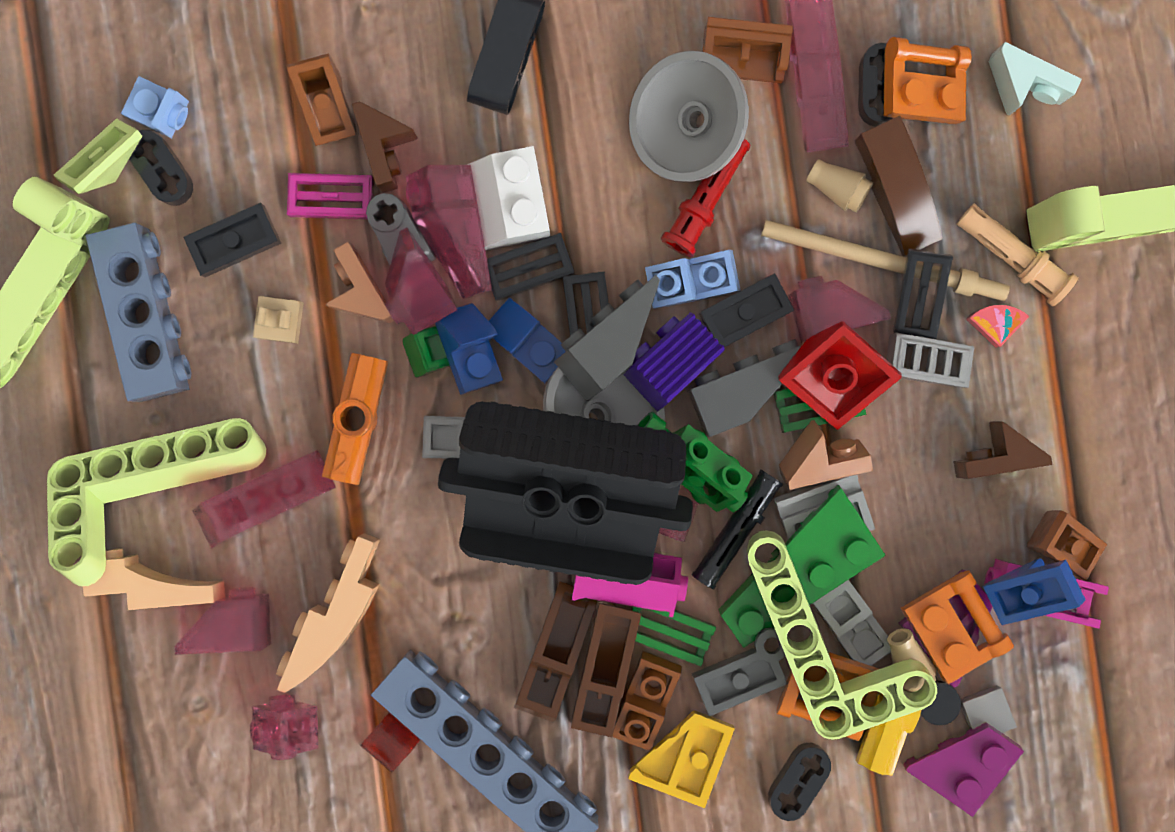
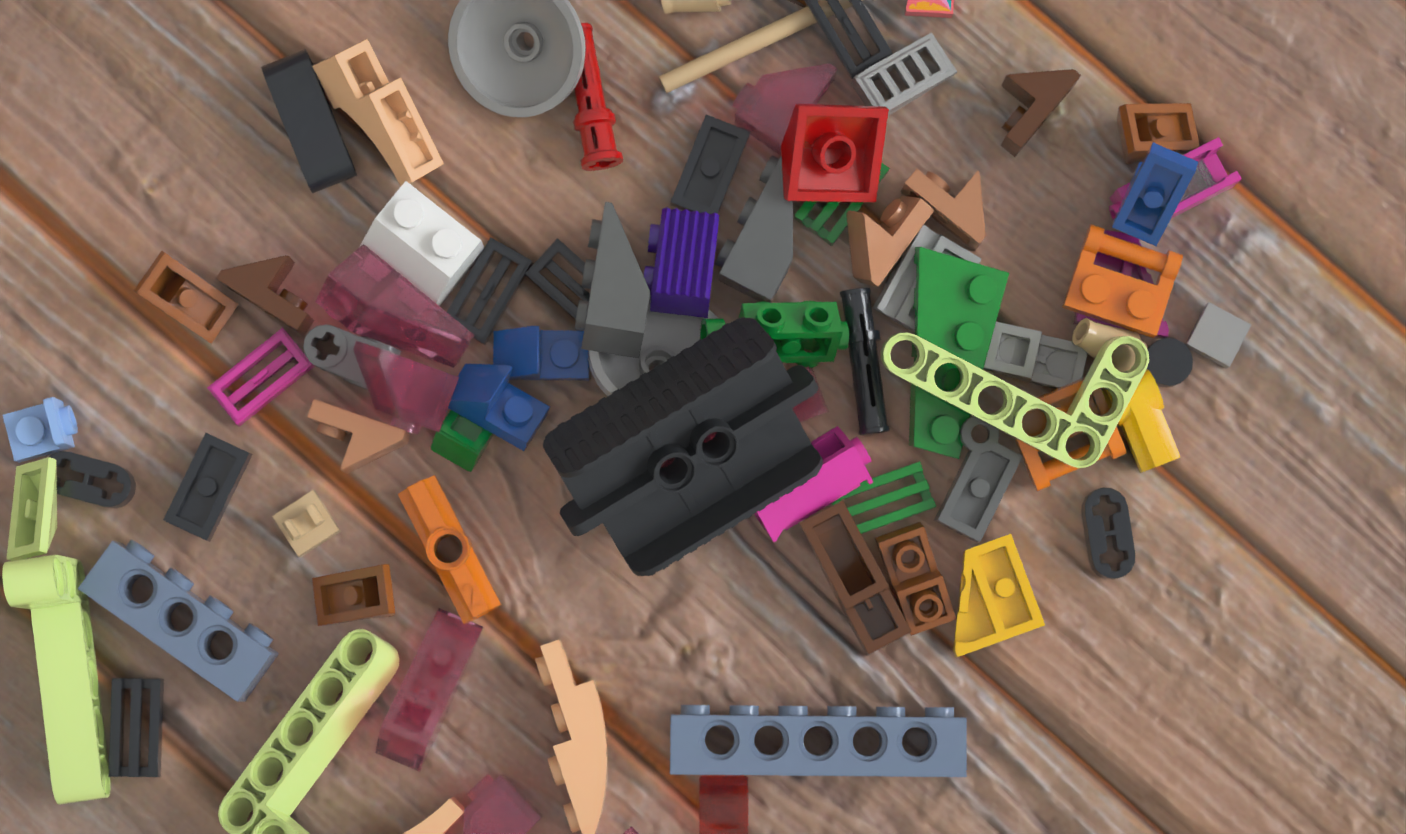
camera: 40 degrees left, 5 degrees down
(30, 384) = (116, 766): none -> black tile
(266, 396) = (354, 595): none -> dark orange slope
(441, 436) = (540, 500): light grey tile -> none
(555, 654) = (801, 604): reddish brown slope -> none
(560, 83) = (381, 108): none -> light nougat slope
(694, 279) = (641, 178): light blue slope -> none
(887, 488) = (959, 215): none -> nougat slope
(967, 766) = (1240, 395): magenta wing -> none

